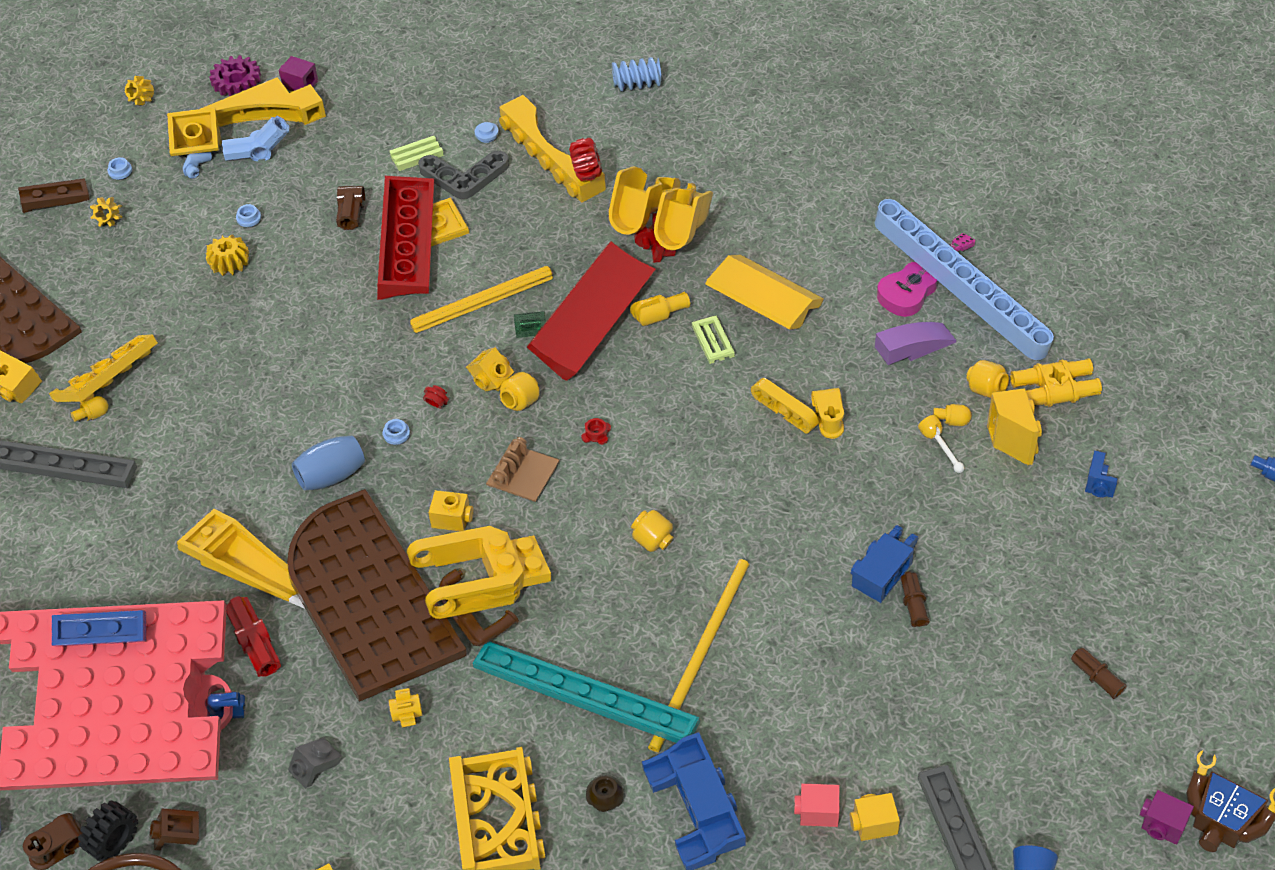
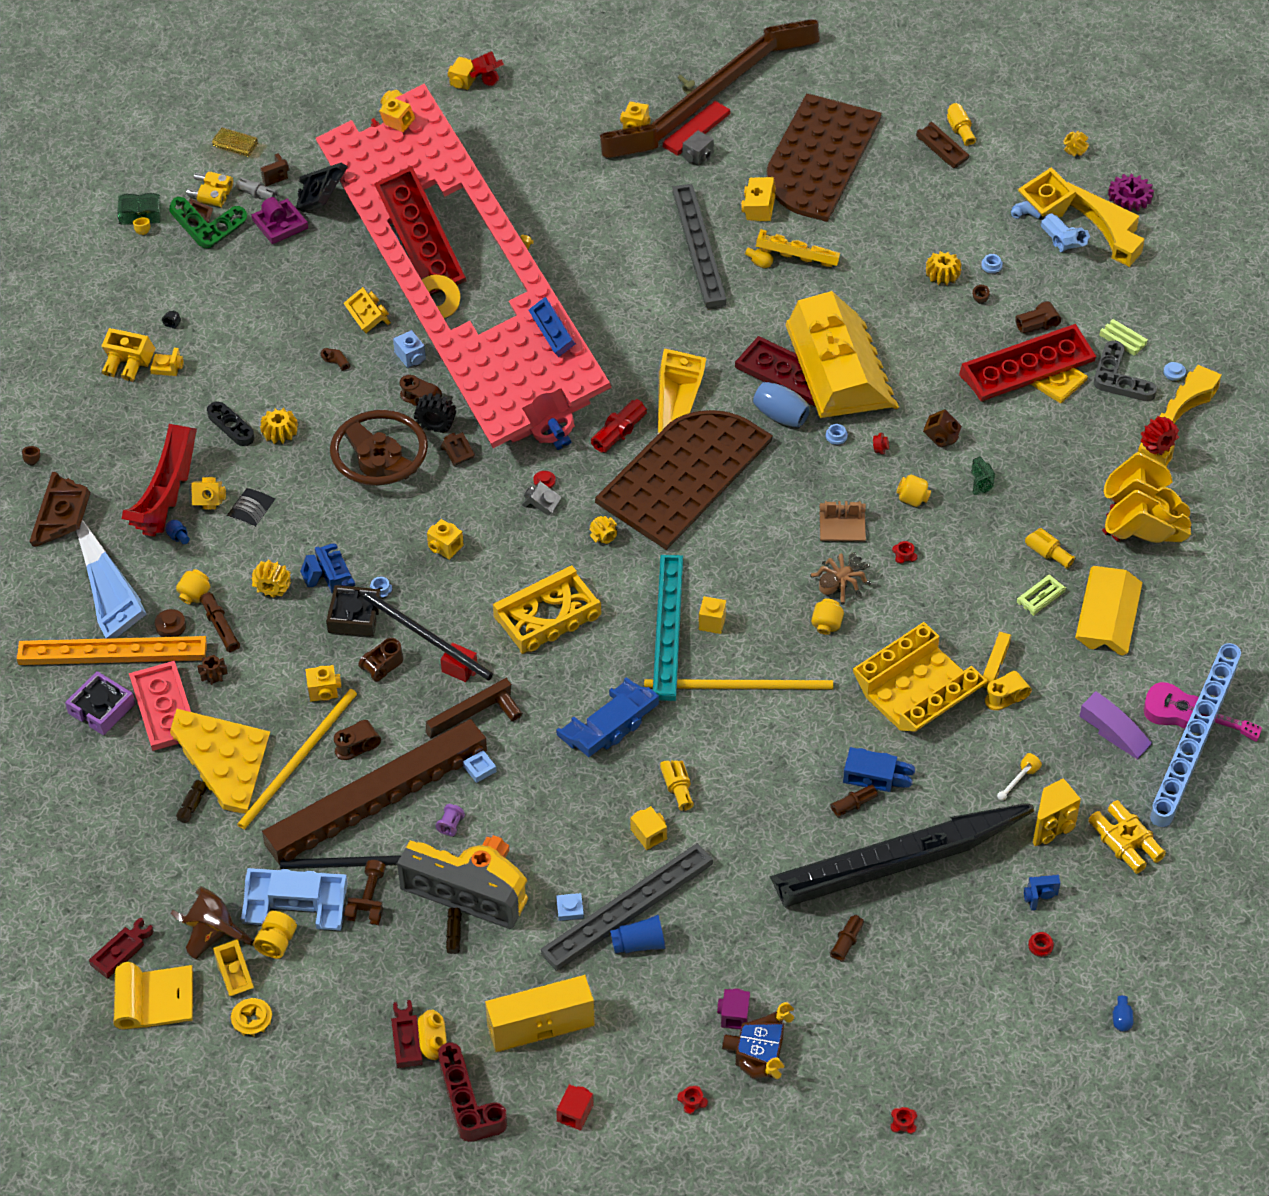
camera: 65 degrees right, 0 degrees up
(37, 168) = (960, 123): none -> yellow arm
(99, 215) = (941, 181): yellow gear -> none
(119, 168) = (992, 170): light blue plate -> none
(282, 235) = (983, 291): none -> reddish brown hinge
(282, 439) = (774, 365): none -> dark red plate
(283, 746) = (545, 477): none -> red plate
(297, 73) = (1154, 224): magenta brick -> none
(297, 389) = (838, 357): none -> yellow piece
(450, 511) = (780, 491): yellow brick -> none
(453, 334) = (942, 428): none -> reddish brown brick
(469, 624) = (697, 533): reddish brown piece -> none
(481, 299) = (996, 436): yellow axle -> none
(490, 369) = (926, 458): yellow brick -> none
(507, 562) = (749, 541): yellow plate -> none
(589, 310) = (1017, 502): red arch -> none
(595, 639) = (712, 615): none -> yellow brick
(604, 500) = (837, 579): none -> animal
(607, 801) = (595, 673): dark brown plate -> none
(789, 481) = (915, 679): none -> yellow slope
(818, 762) = (677, 782): none -> yellow arm
(818, 805) = (641, 791): coral brick -> none
(954, 414) = (1051, 773): yellow cylinder -> none
(987, 378) = (1101, 787): yellow head -> none
(1009, 590) = (895, 854): none -> black piece
(1166, 497) = (1044, 938): none -> red plate

